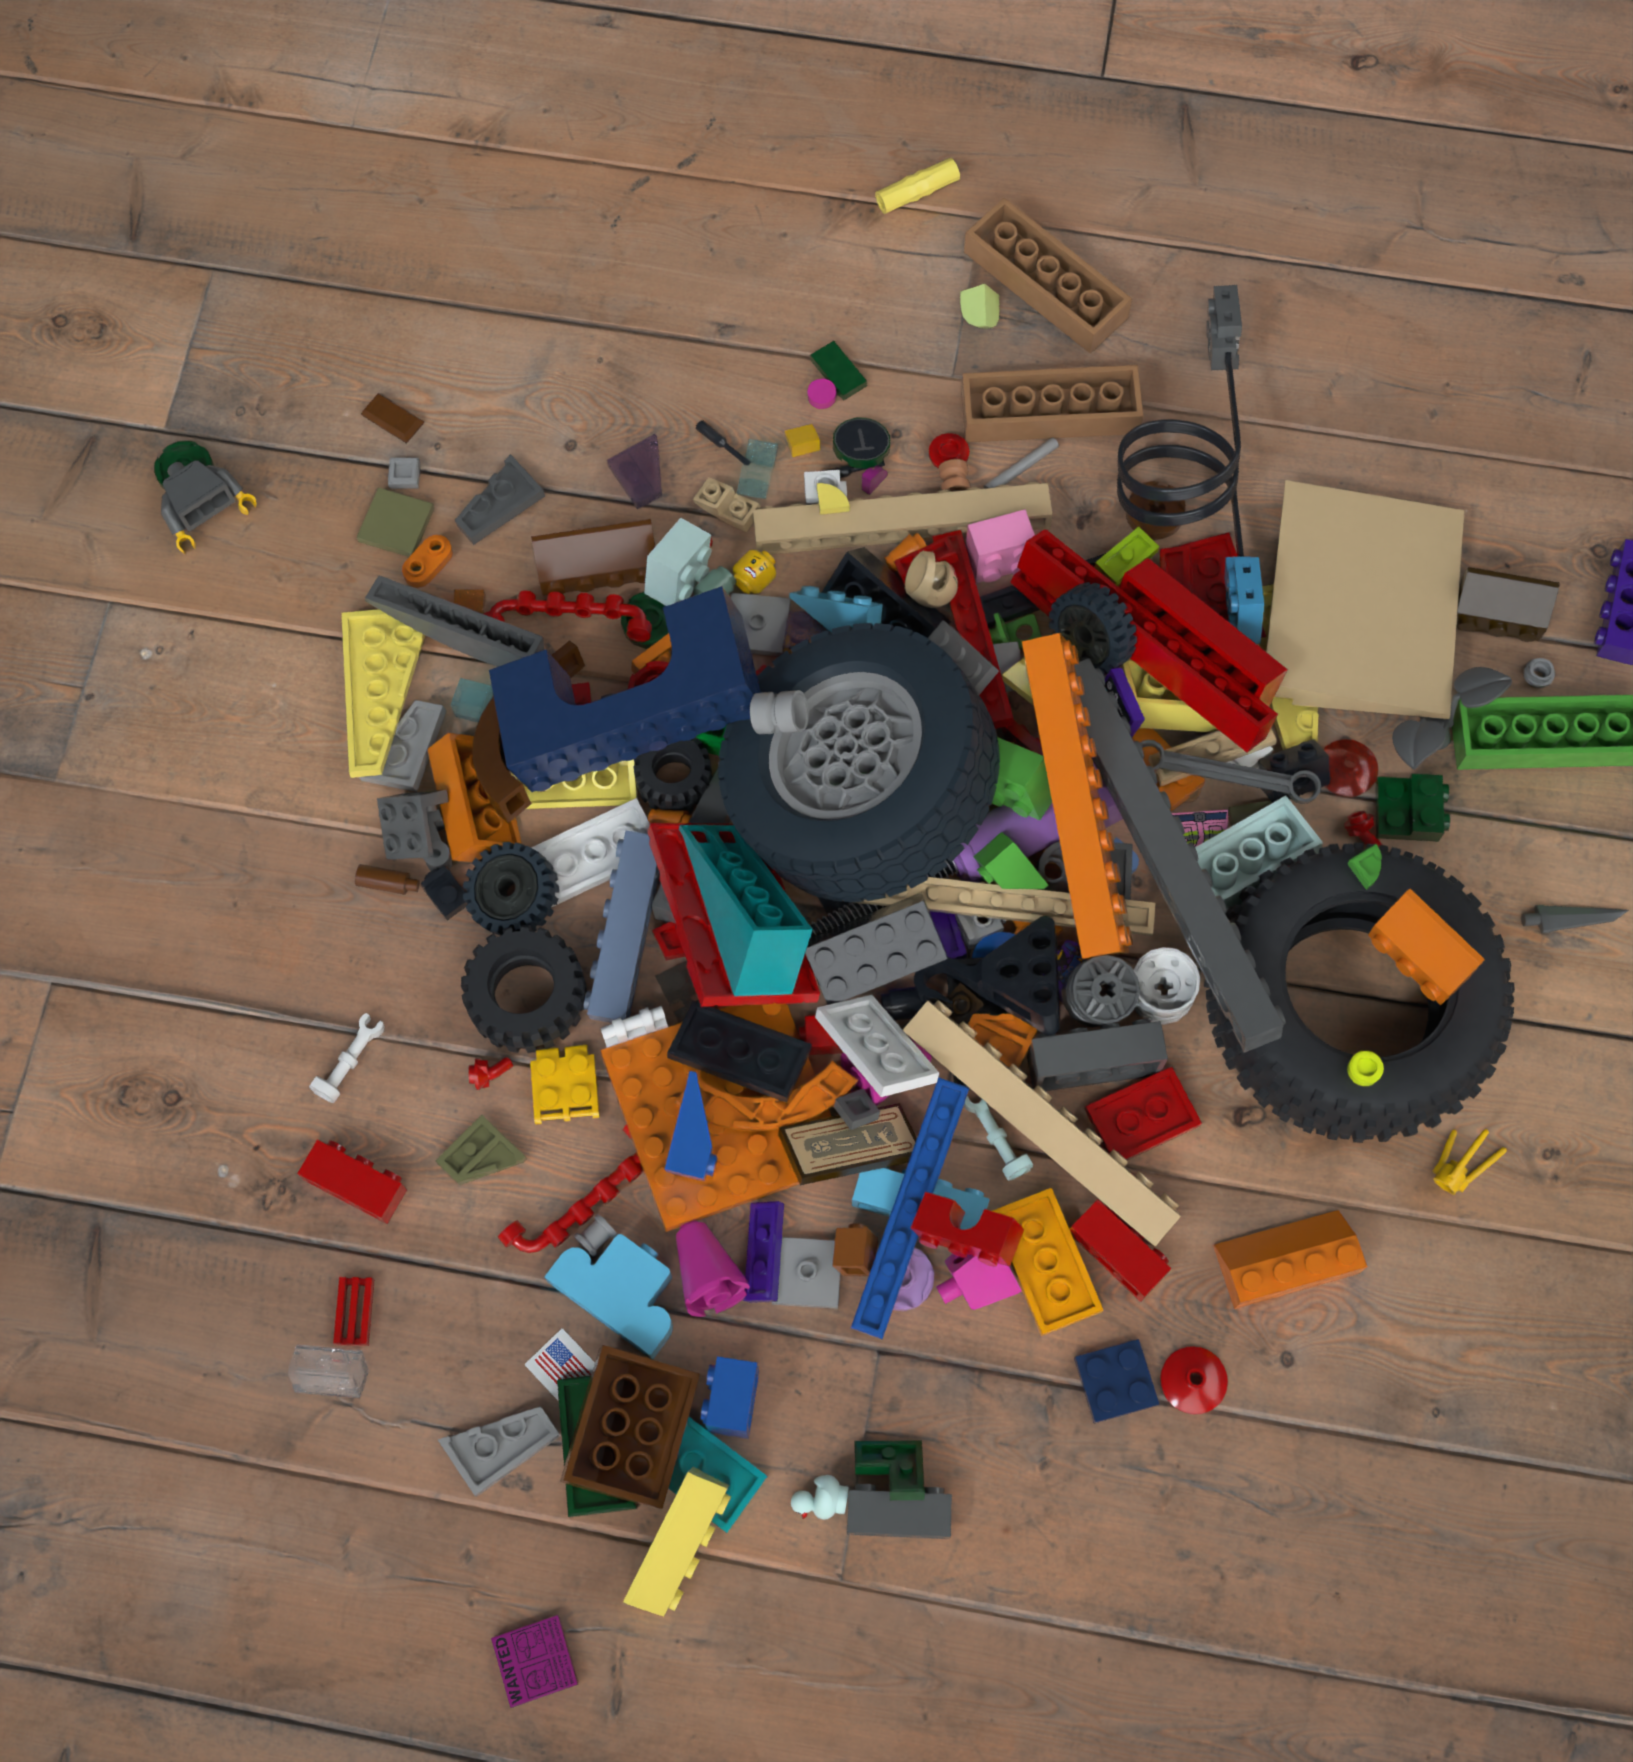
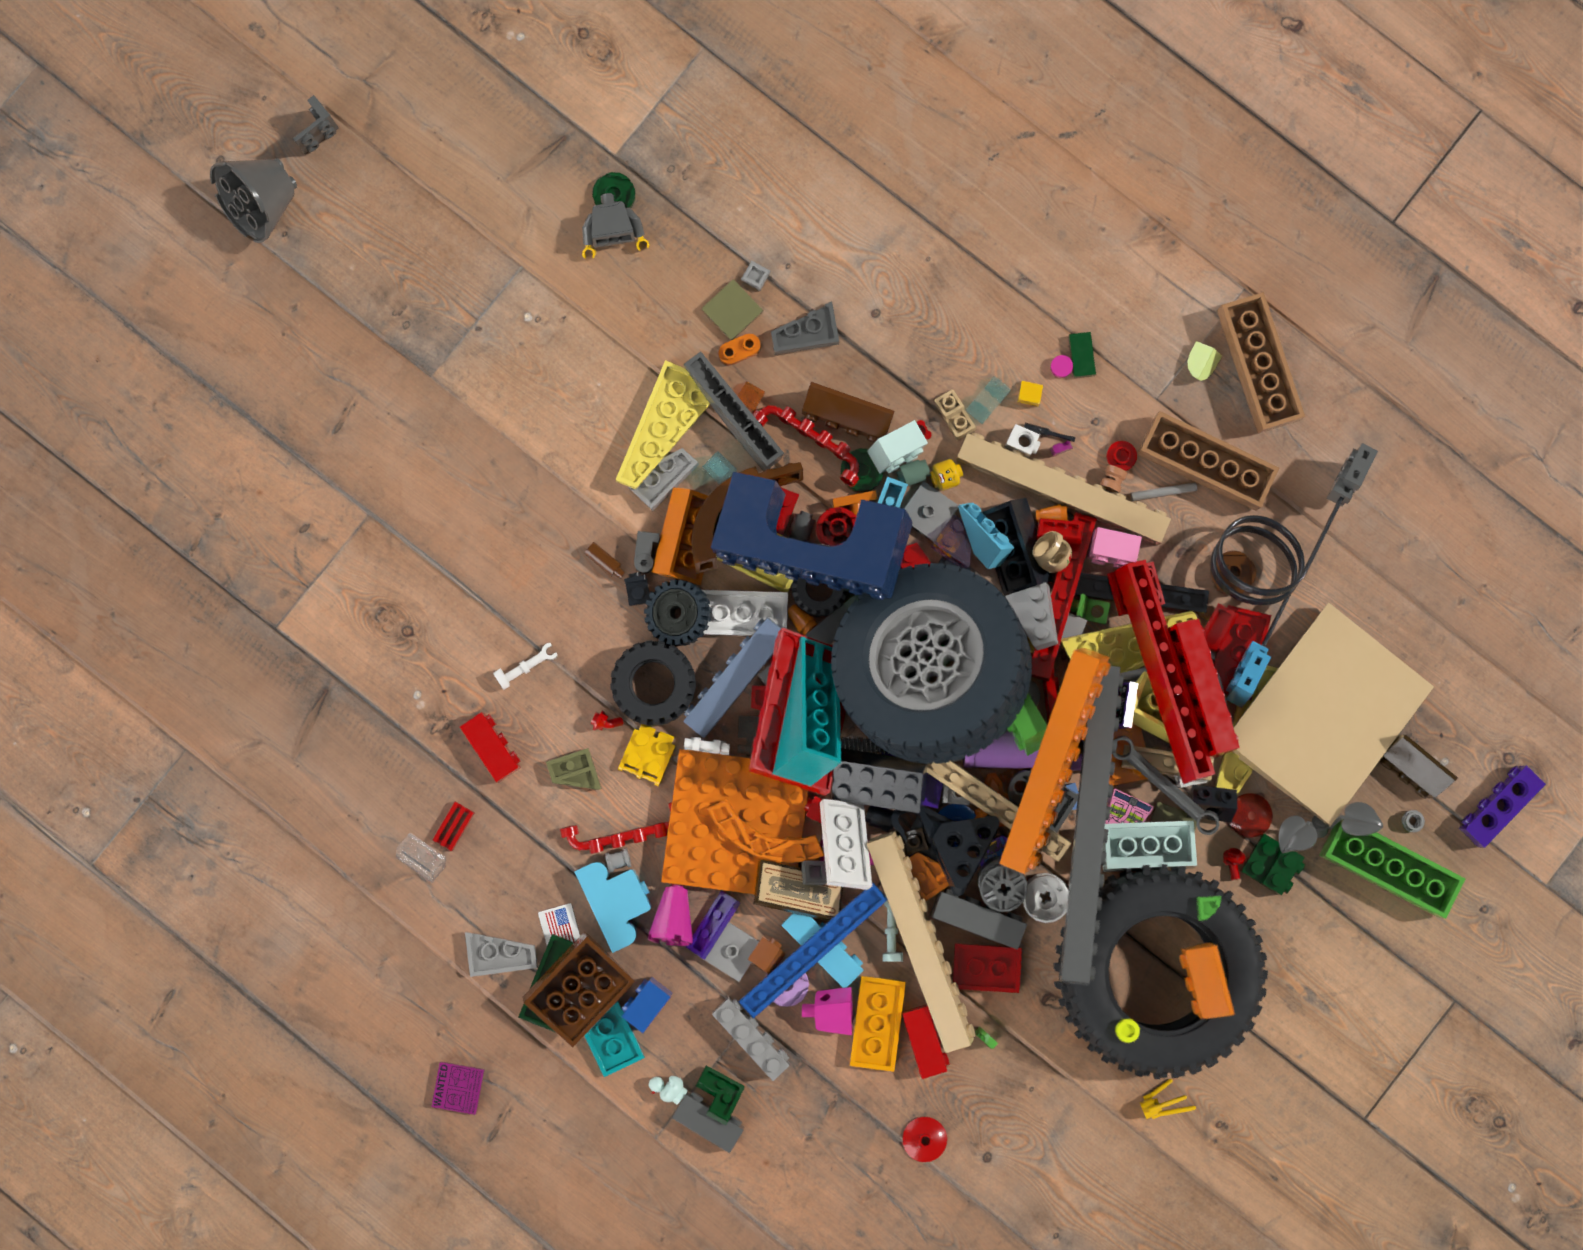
camera: 25 degrees right, 15 degrees up
(392, 418) = (768, 229): reddish brown tile -> none
(406, 823) = (635, 531): dark grey bracket -> none
(639, 471) = (909, 360): clear purple wing -> none
(677, 1543) = (571, 1070): light yellow slope -> none
(691, 1142) = (699, 847): blue slope -> none
(719, 440) = (975, 366): black piece -> none
(739, 1051) = (763, 800): black tile -> none
(779, 712) = (898, 612): light grey wheel -> none
(831, 499) = (1021, 455): light yellow tile -> none
(861, 442) = (1067, 418): black tile -> none
(894, 1370) = (751, 1039): none -> light grey brick
(917, 185) = (1214, 243): light yellow axle -> none
(991, 1239) = (847, 1002): red arch -> none
(1007, 865) = (991, 773): bright green slope -> none
(1095, 625) = (1134, 647): black wheel -> none
(1116, 1381) = (878, 1115): dark blue plate -> none
(1126, 555) = (1191, 599): lime plate -> none
(1195, 1203) = (986, 1038): none -> bright green tile
(1289, 1258) = (1023, 1101): orange slope -> none
(1560, 918) = (1320, 985): dark grey bar -> none

